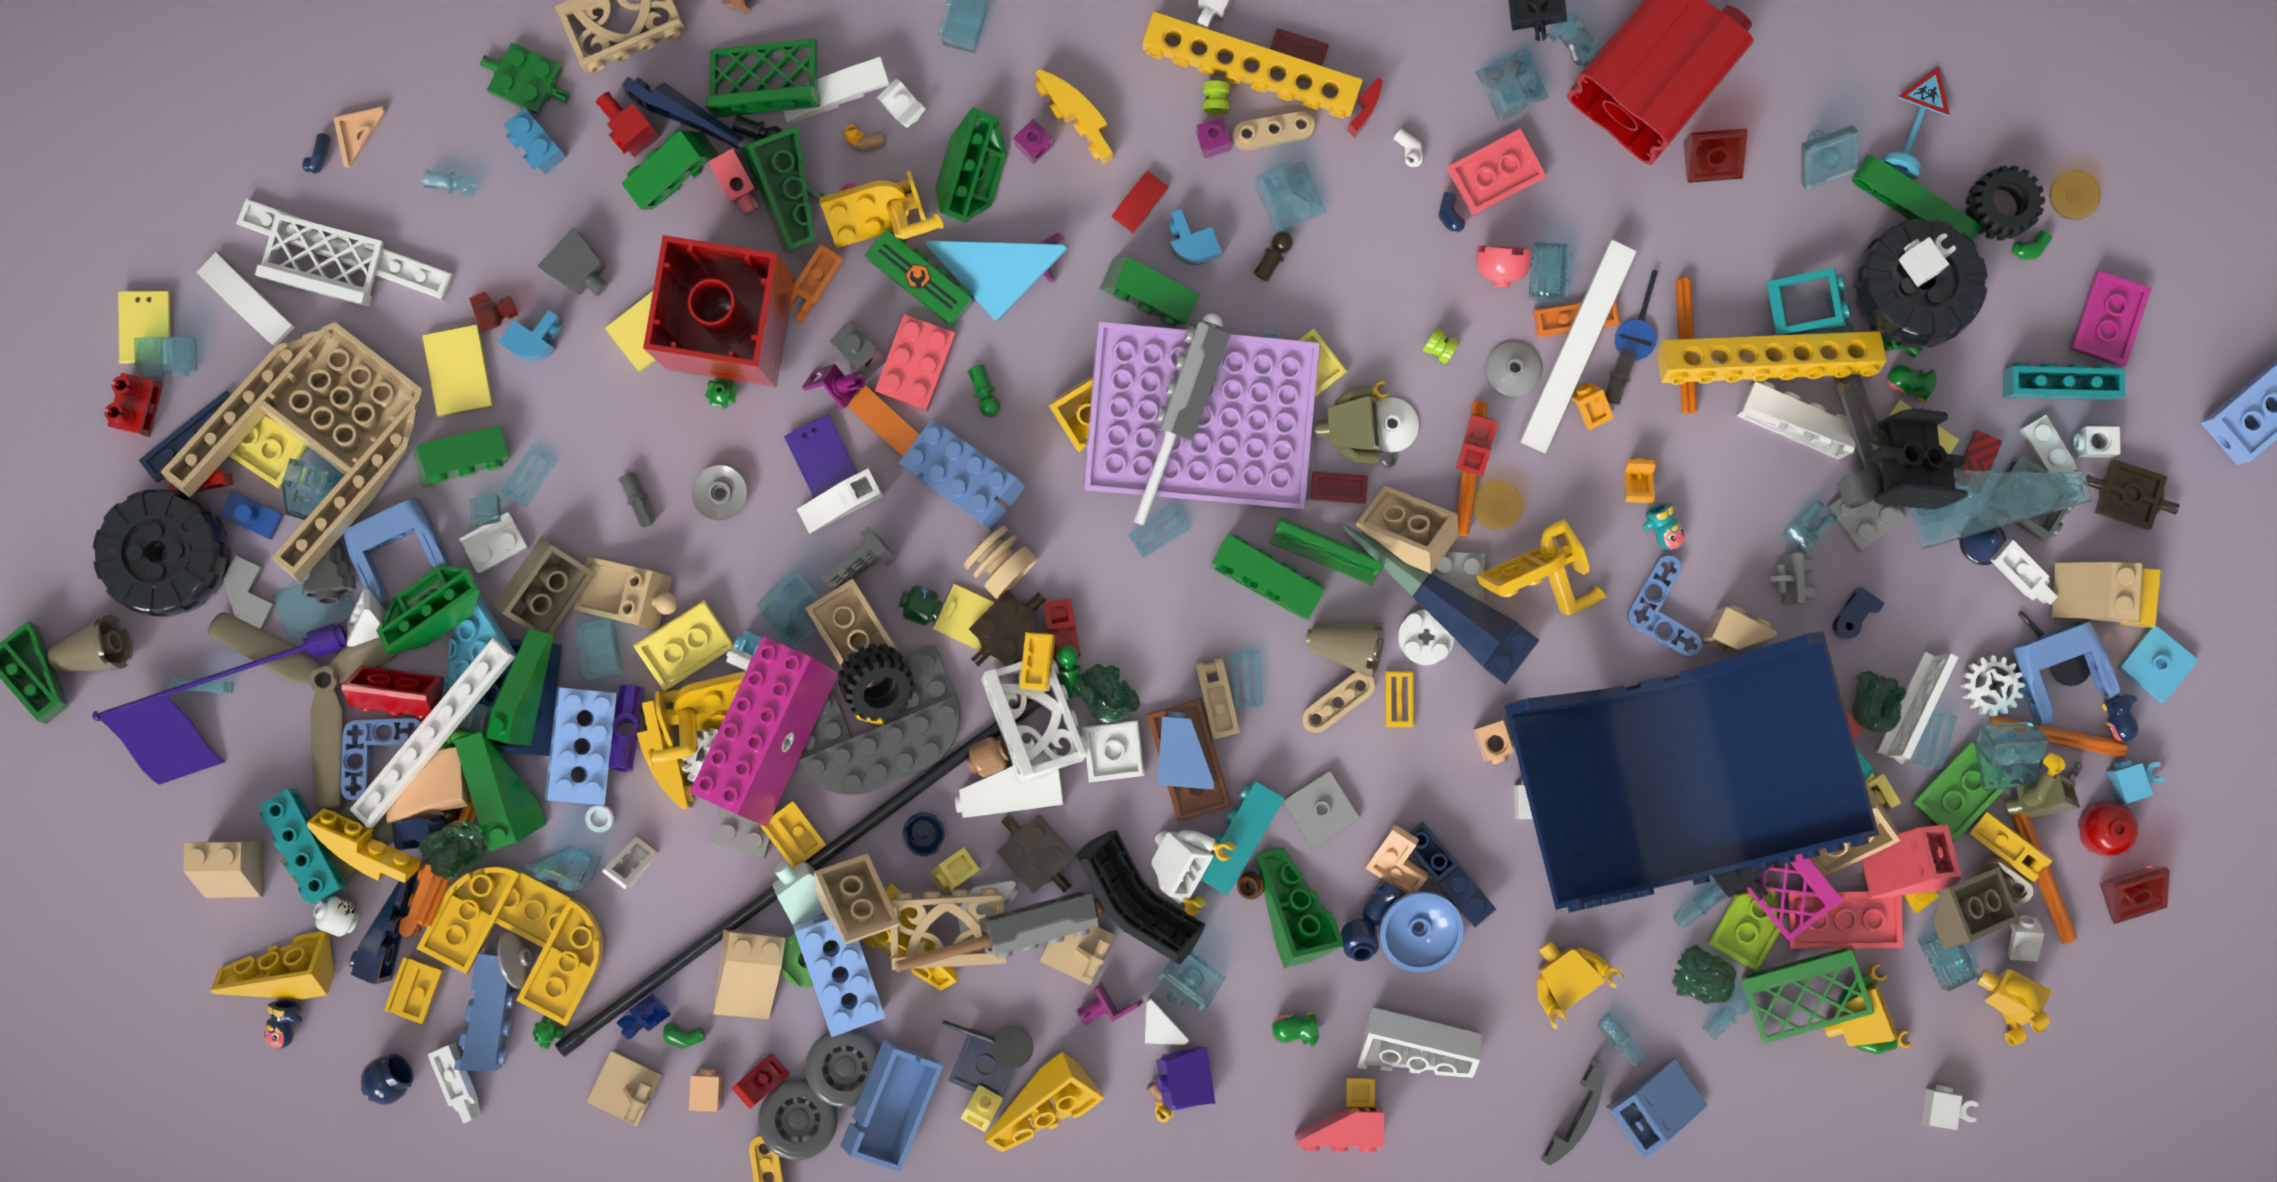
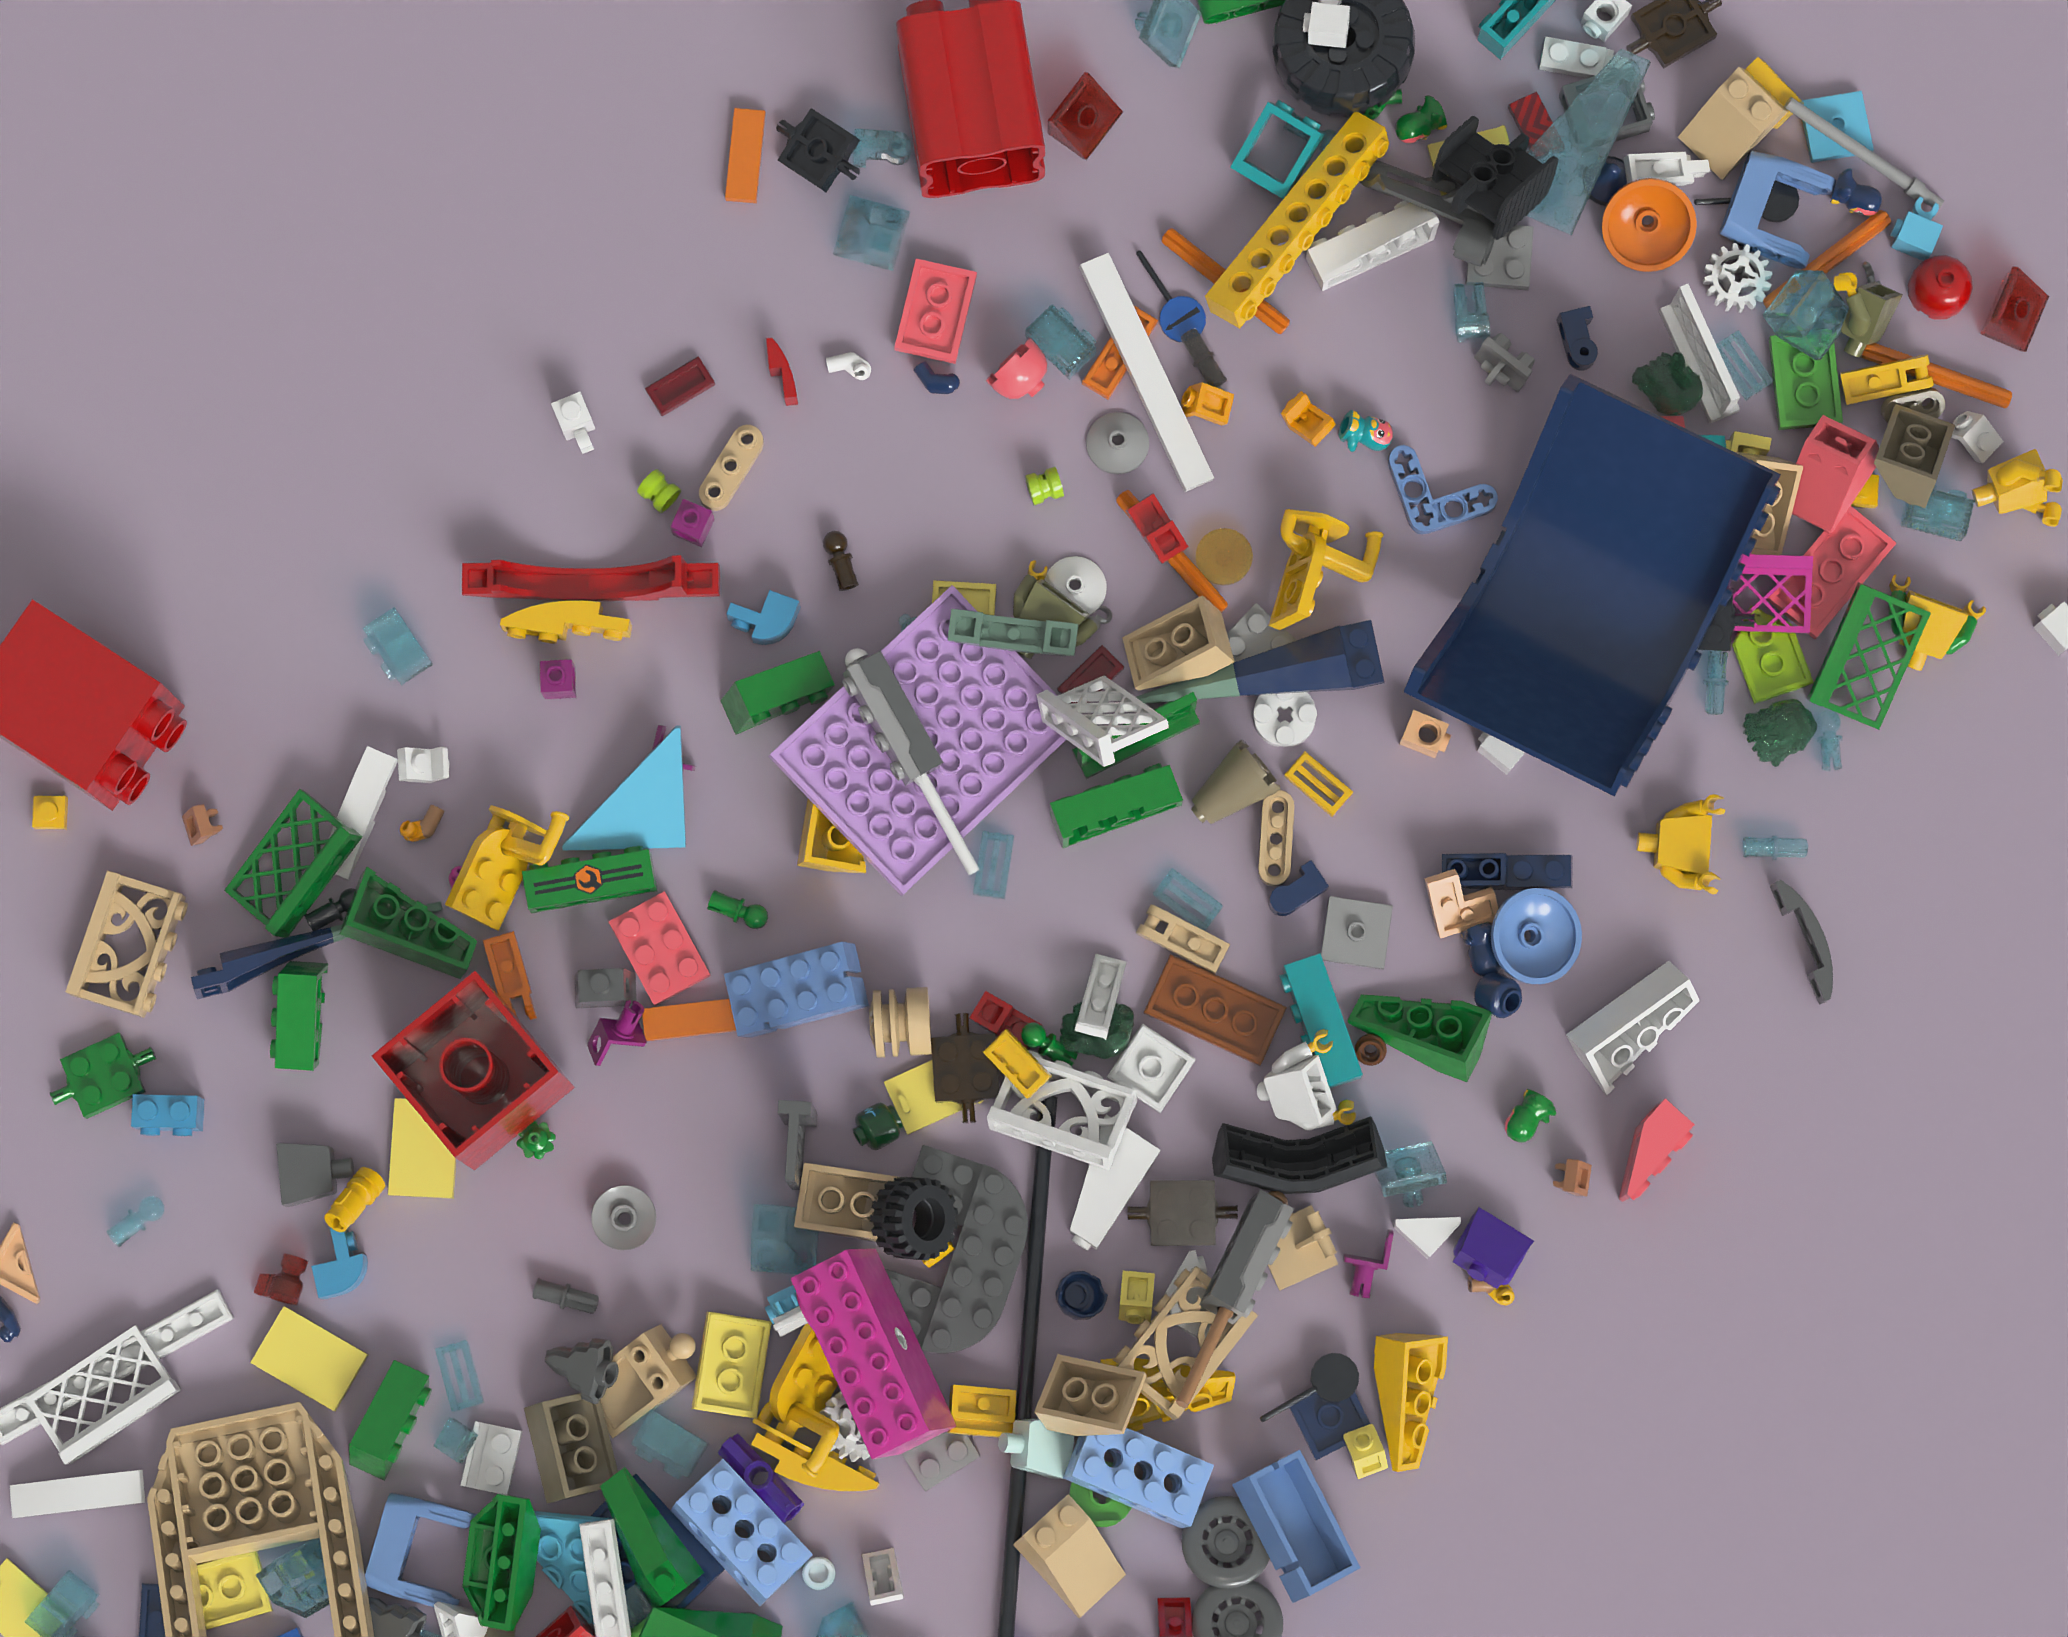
camera: 50 degrees left, 5 degrees down
(576, 309) = (352, 1201): none -> yellow axle
(601, 553) = (586, 1367): none -> dark grey rock
(628, 126) = (233, 1018): red brick -> none
(730, 169) = (347, 961): coral torso -> none
(820, 455) = (671, 1102): dark purple container -> none
(840, 501) = (724, 1117): white slope -> none
(971, 167) = (532, 751): green wedge -> none
(988, 757) = (1062, 1180): medium nougat head -> none
(1130, 677) = (1100, 996): none -> white tile
(1140, 201) = (691, 633): red slope -> none
(1148, 142) = (640, 582): none -> red slope
(1181, 755) = (1206, 1008): medium blue slope -> none
(1242, 52) = (665, 420): yellow brick -> none
(1283, 1094) = (1576, 1177): none -> nougat tile
(1289, 195) = (800, 502): clear light blue slope -> none
(1295, 511) = (1083, 729): none -> white fence
(1304, 745) = (1288, 899): none -> dark blue leg
(1321, 410) = (1012, 633): none -> sand green slope
(1360, 1092) = (1630, 1109): yellow plate -> none
(1657, 1108) = (1858, 867): medium blue slope -> none
(1733, 630) = (1504, 450): tan slope -> none
(1973, 613) = (1655, 244): none -> orange dish
(2161, 751) = (1912, 186): none -> light grey bar

